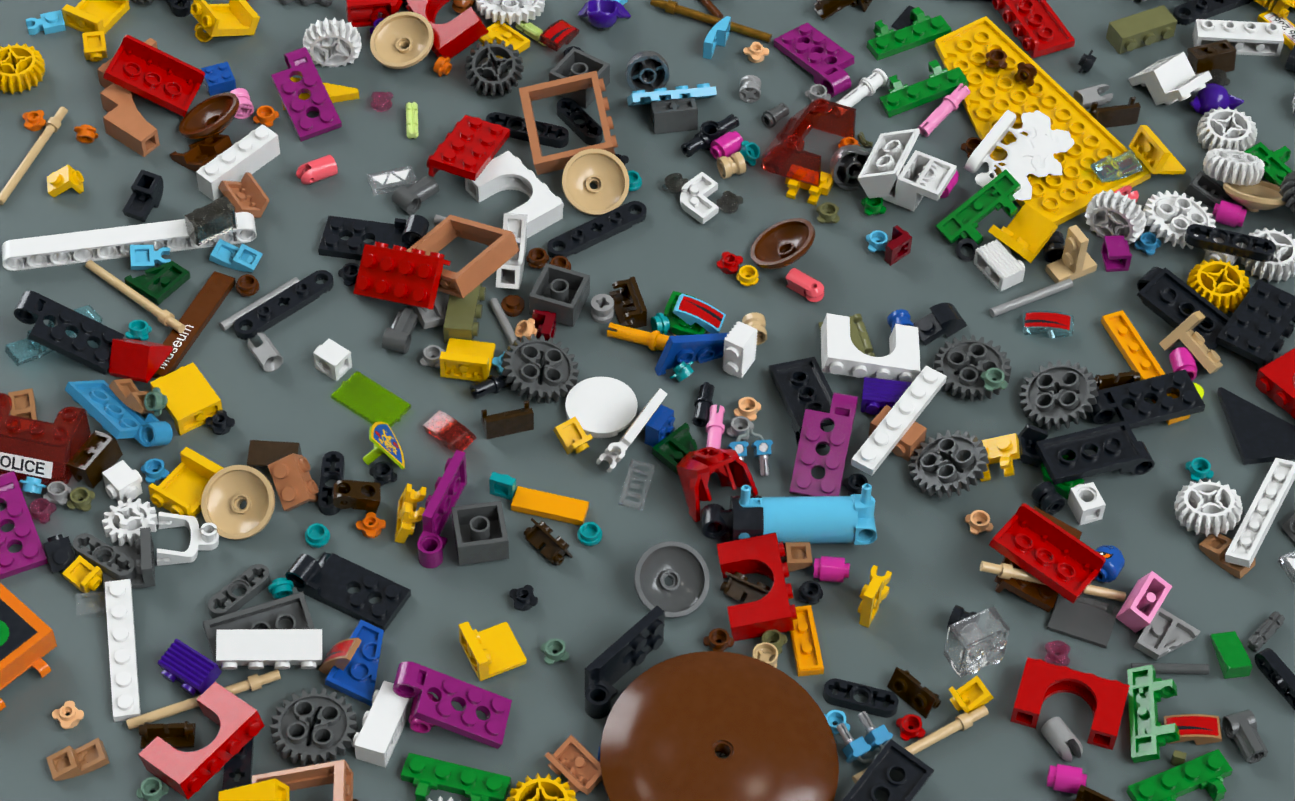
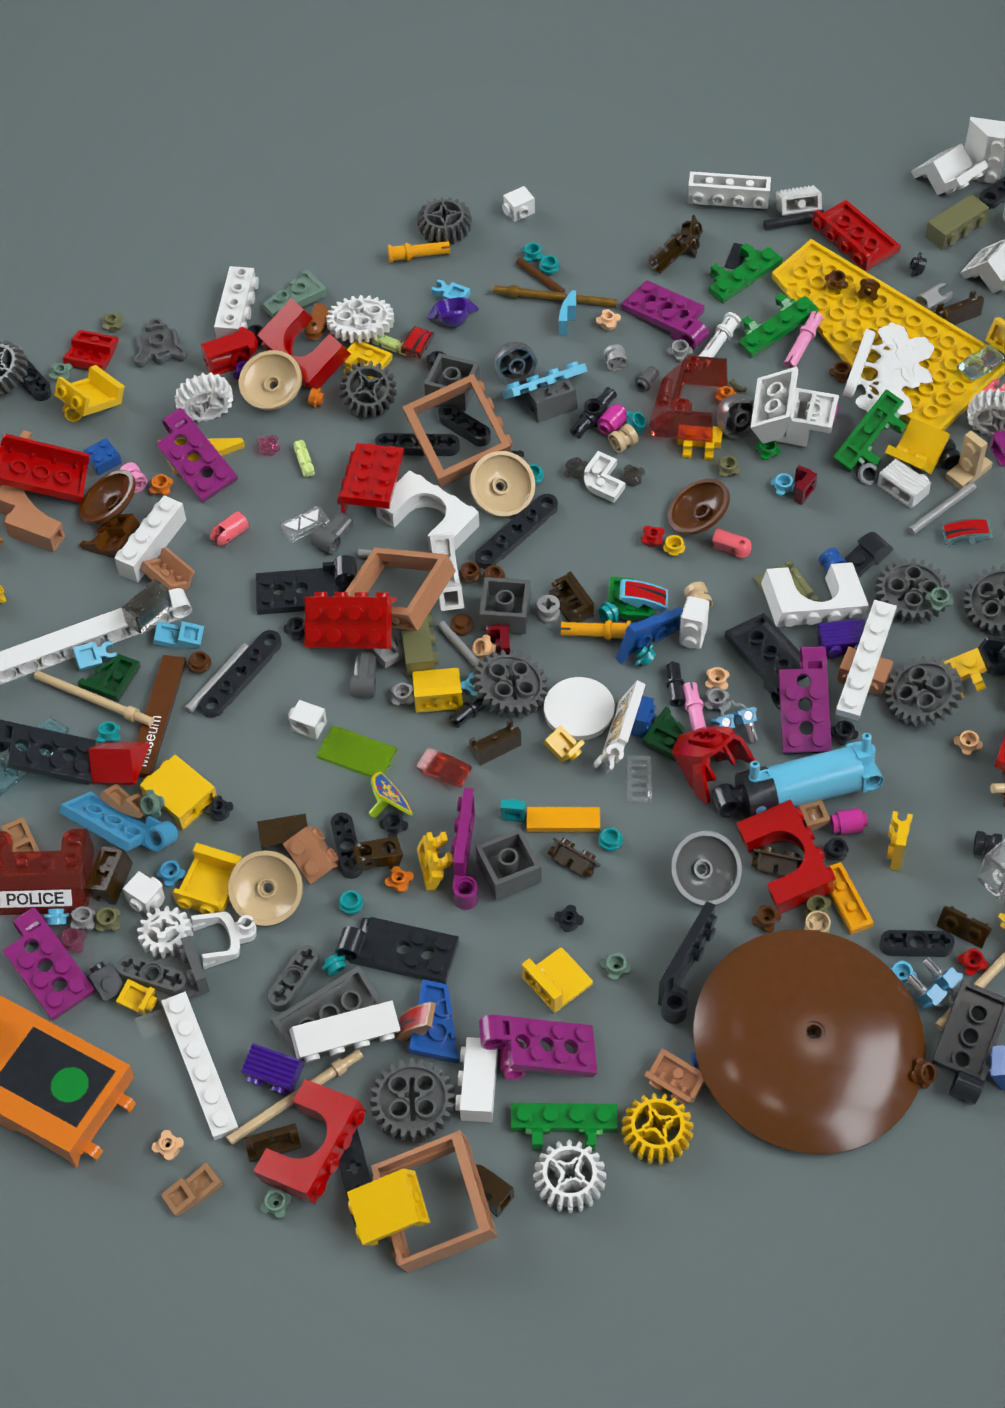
camera: 10 degrees left, 5 degrees up
(146, 194) = (71, 592): black brick -> none
(266, 354) = (241, 729): light grey piece -> none

